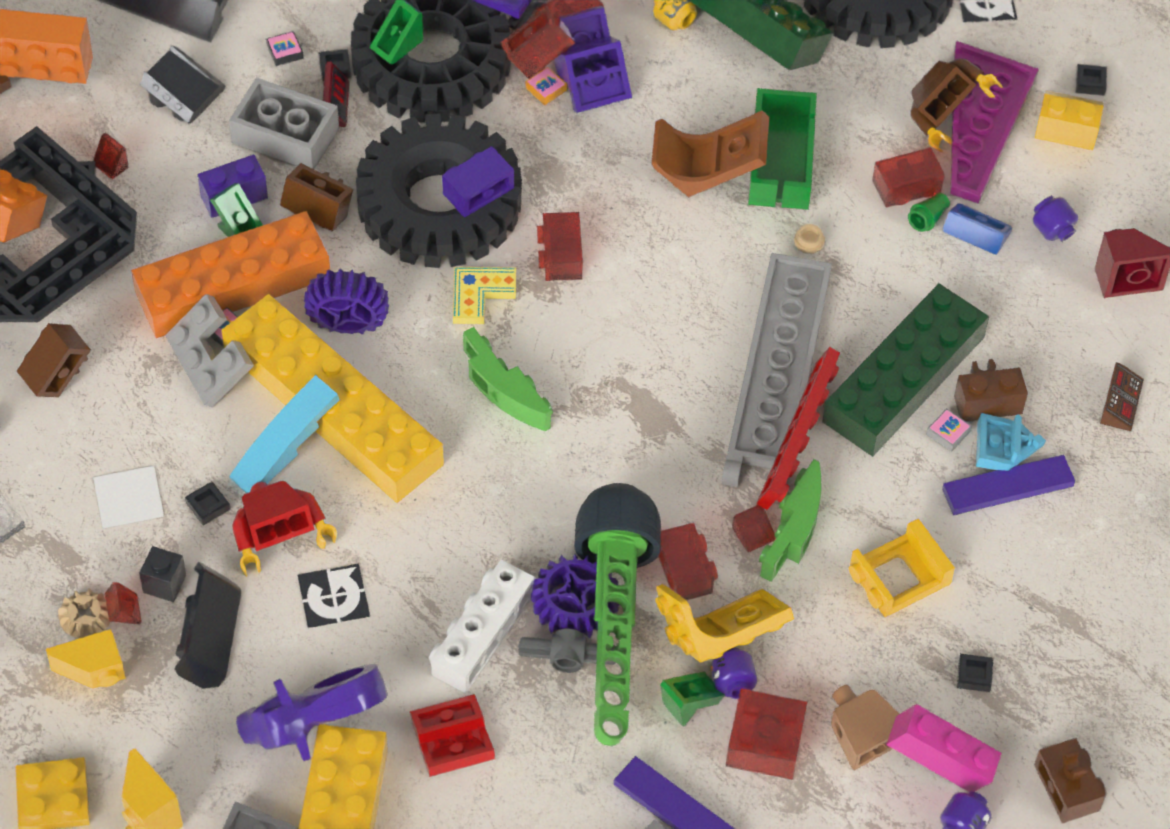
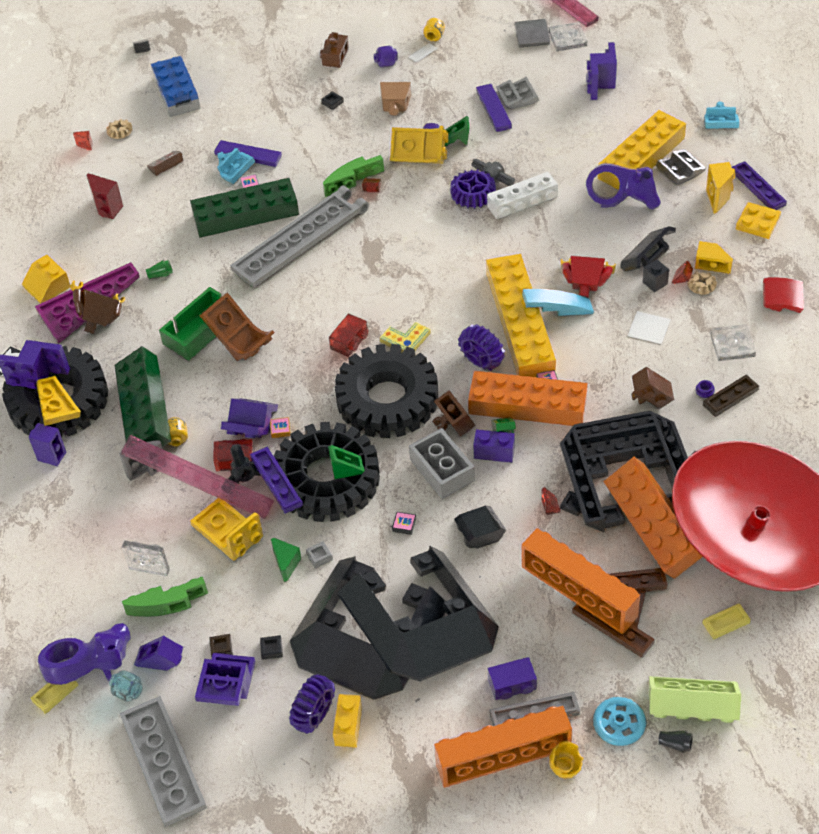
camera: 140 degrees left, 5 degrees down
(207, 503) = (612, 304): black tile -> none
(209, 373) = (574, 358): light grey plate -> none
(333, 595) = (578, 243): sticker -> none
(336, 91) = (400, 476): slope -> none
(339, 58) = (383, 499): black tile -> none
(452, 735) = (567, 167): red slope -> none
(477, 181) = (370, 360): dark purple brick -> none
(505, 388) = (431, 286): bright green slope -> none
(537, 42) = (274, 418): clear red brick -> none
(620, 533) = (439, 188): bright green piece -> none
(686, 562) = (414, 180): clear red brick -> none
(766, 734) = (437, 108): clear red brick -> none
(795, 437) = (319, 195): red plate -> none
(809, 239) = (226, 285): tan plate -> none
(908, 177) = (152, 287): clear red brick -> none
(921, 556) = (314, 137): yellow window -> none
(944, 748) = (375, 67): dark pink brick -> none
(976, 228) = (143, 256): slope -> none
(990, 392) = (218, 180): reddish brown brick -> none
(1055, 218) = (109, 237): dark purple head -> none
(1091, 79) = (13, 297): black tile -> none

